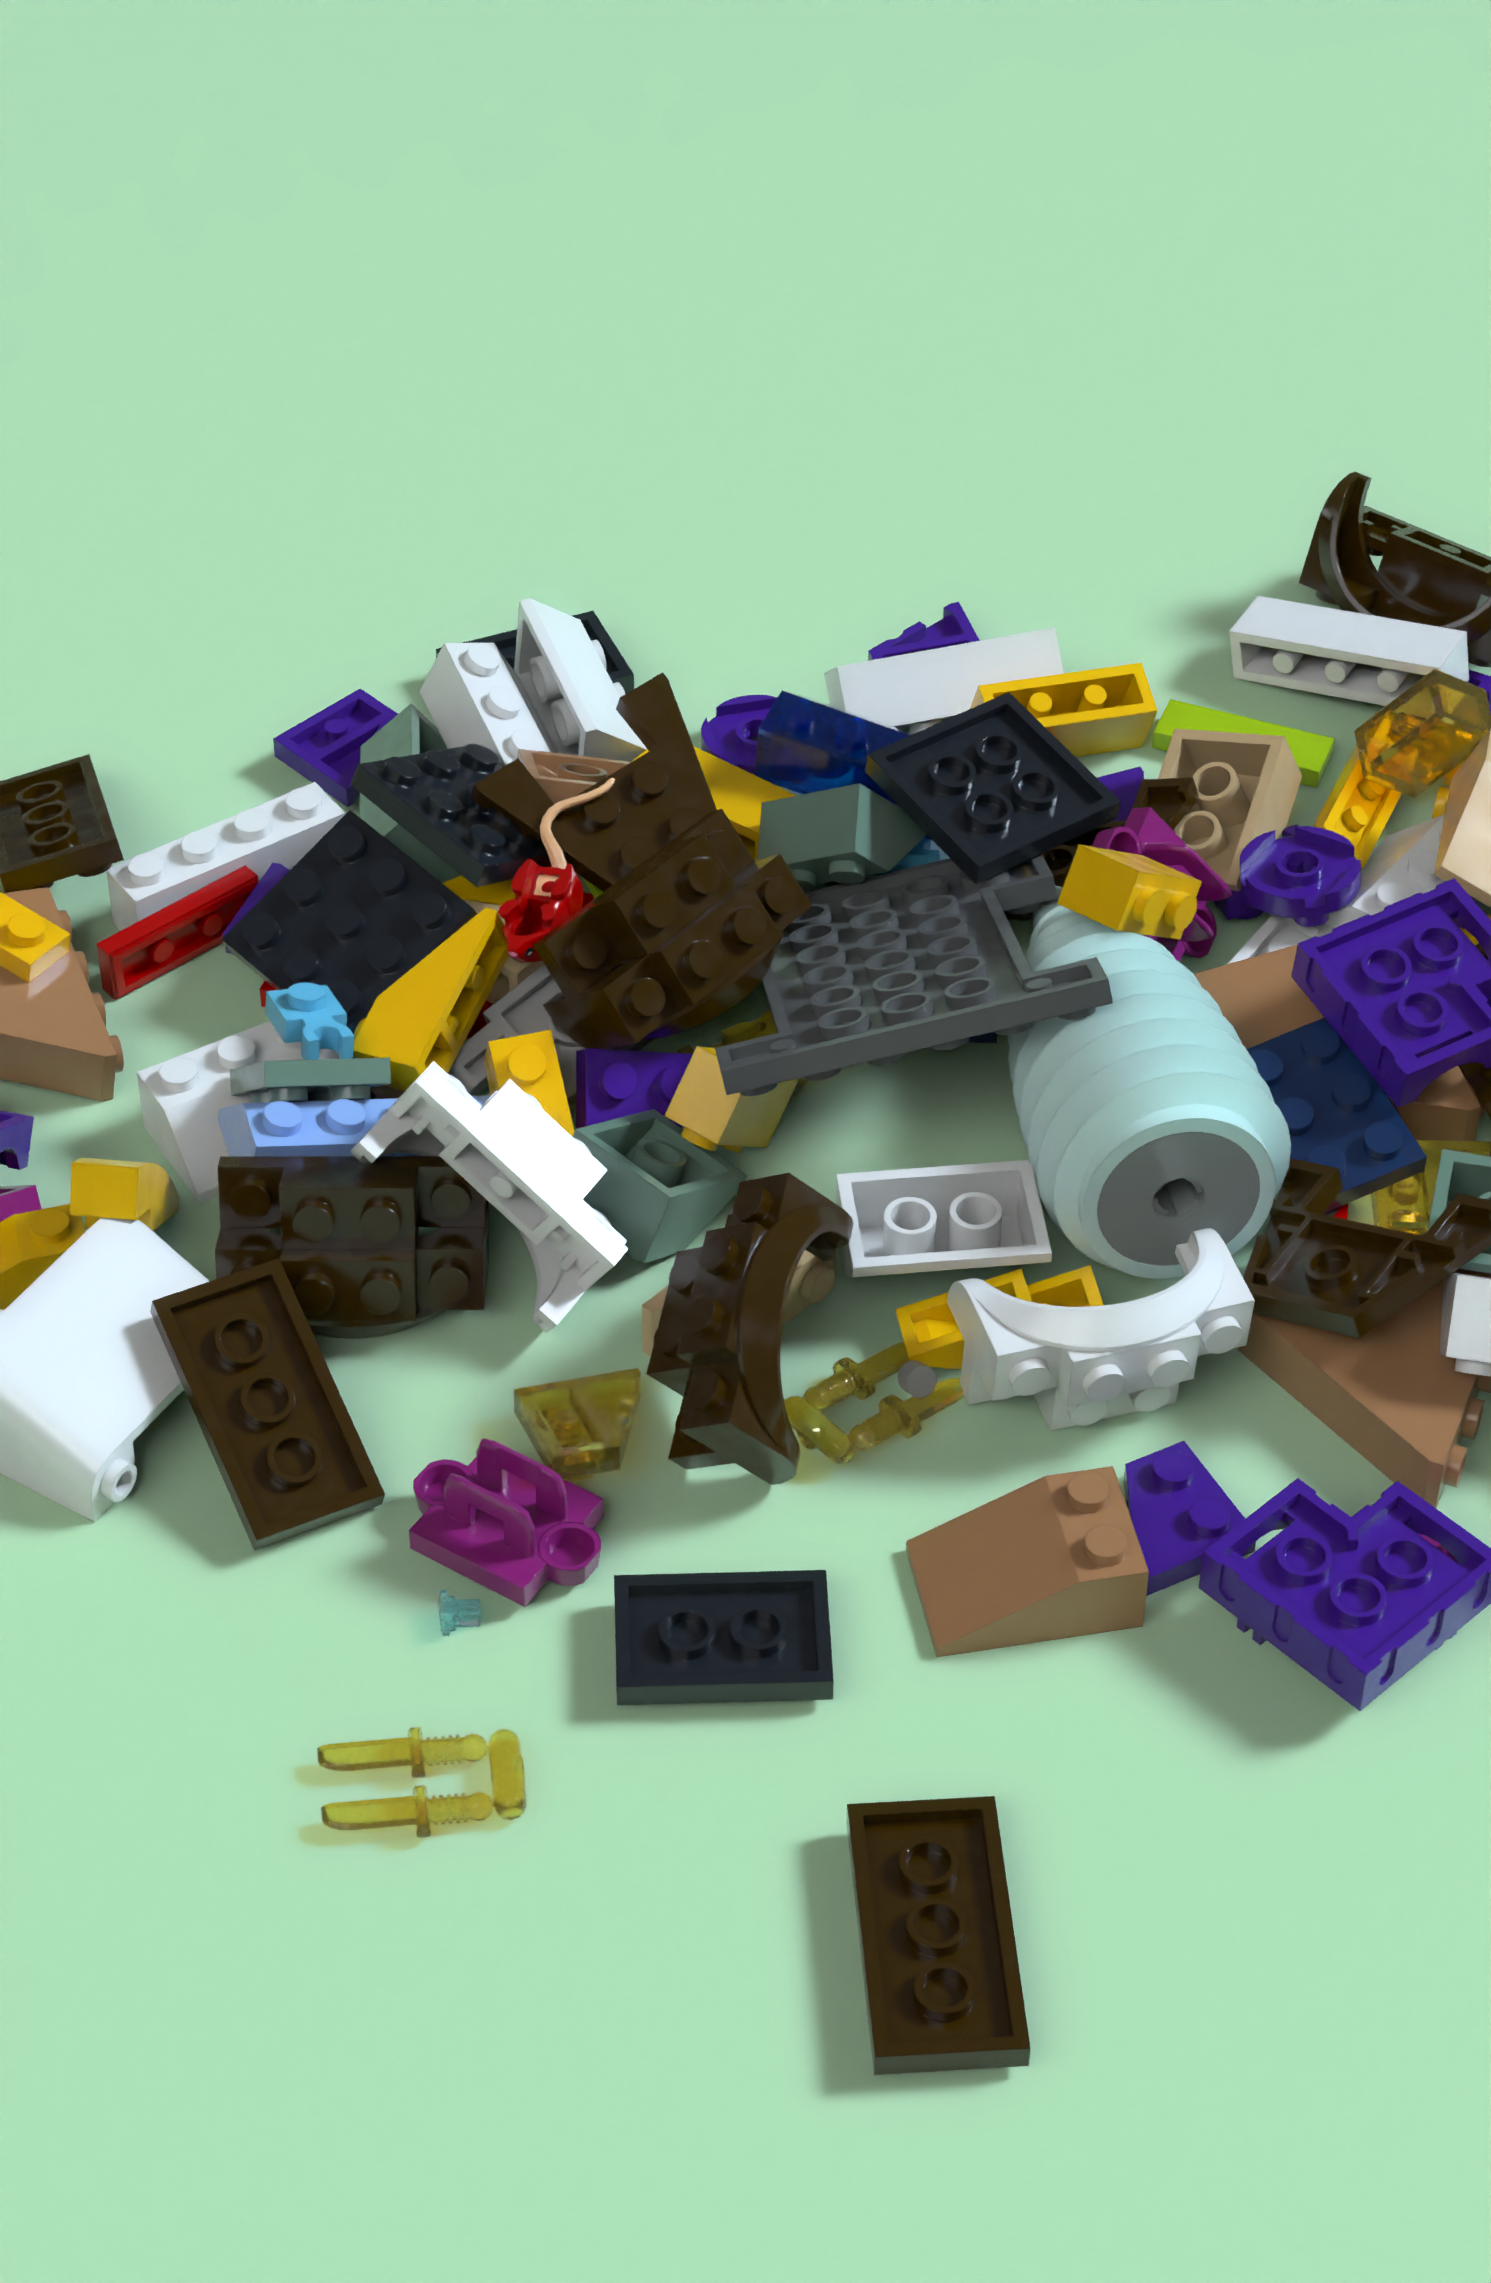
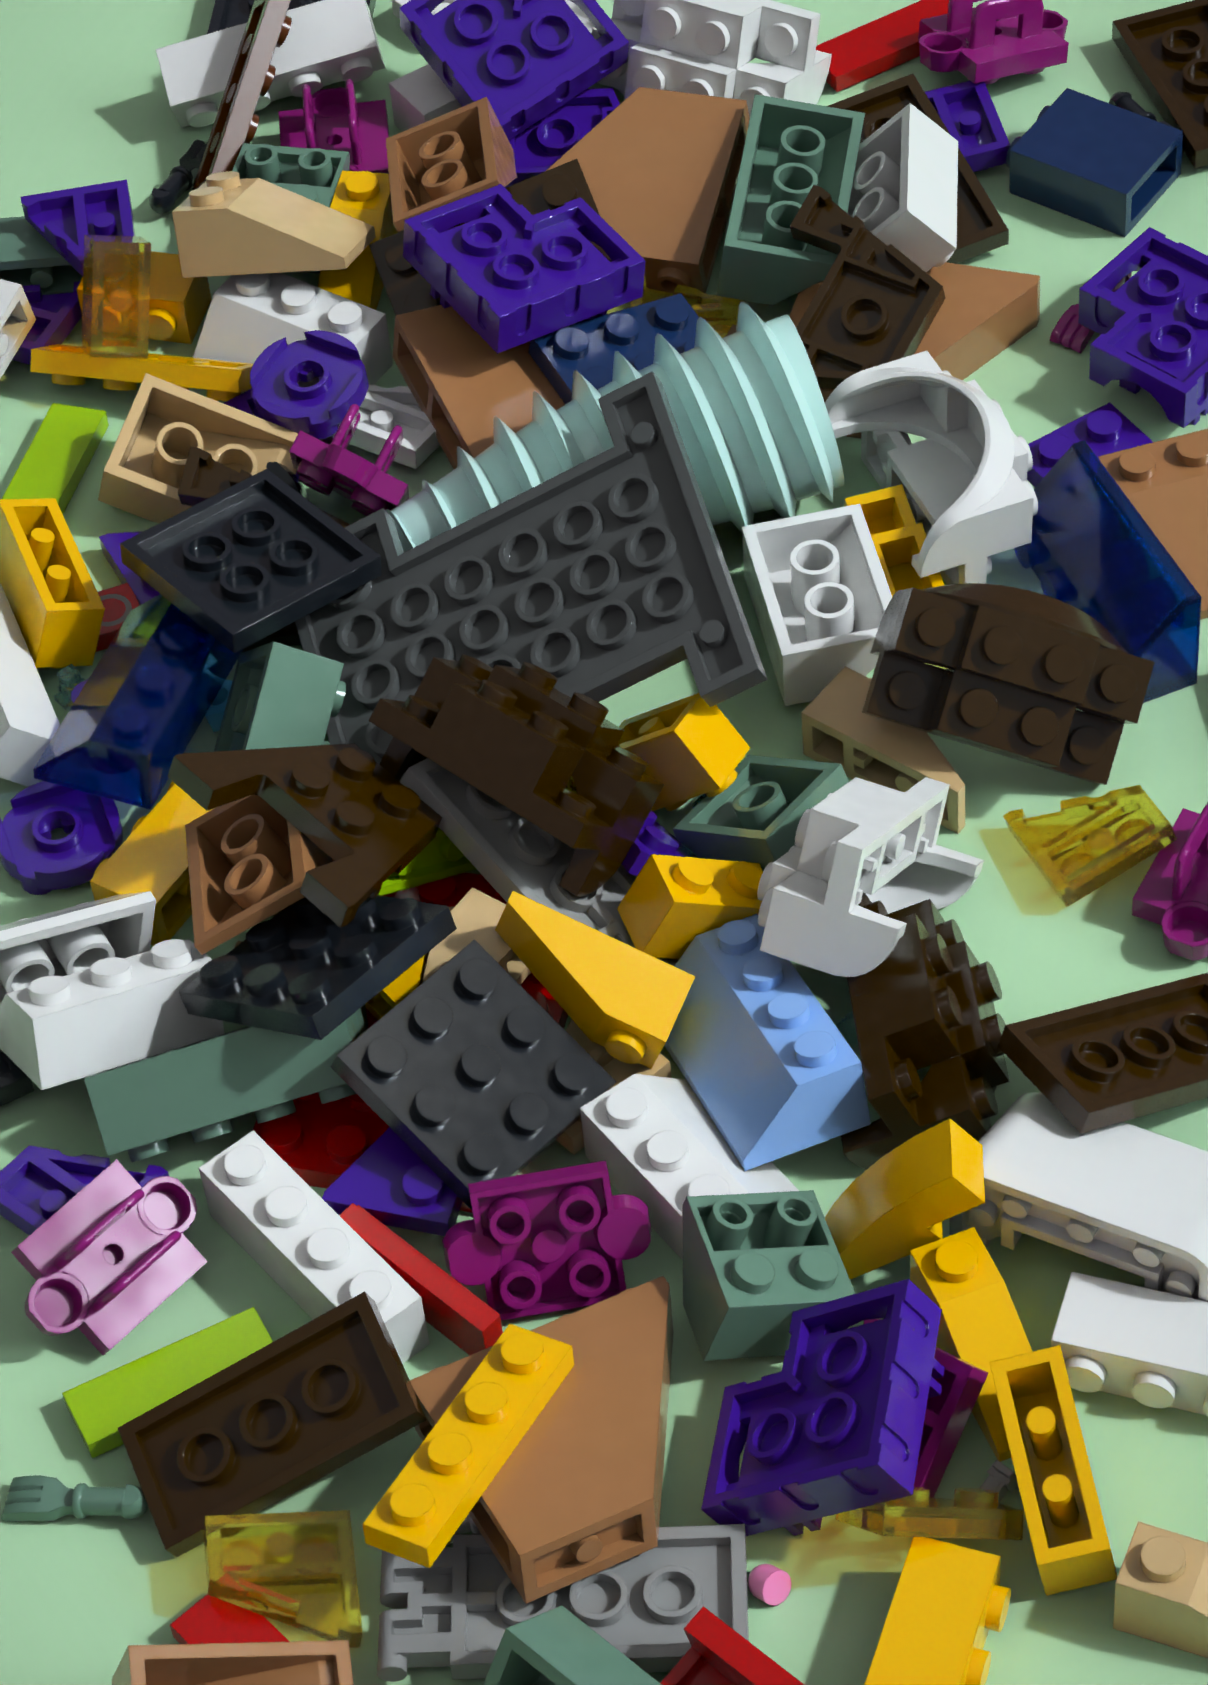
camera: 90 degrees left, 5 degrees up
(56, 738) = (48, 1499): none -> sand green piece
(96, 1105) = (752, 1266): none -> sand green slope
(141, 795) = (141, 1385): none -> lime tile
(186, 989) = (547, 1240): none -> magenta piece
(256, 744) = (110, 1256): none -> piece
(310, 1016) = (637, 1073): medium azure plate -> none
(323, 1077) = (723, 1060): sand green plate -> none
(544, 894) = (471, 864): red animal -> none
(904, 1486) = (1110, 564): none -> clear blue slope
(1130, 892) = (438, 429): yellow brick -> none

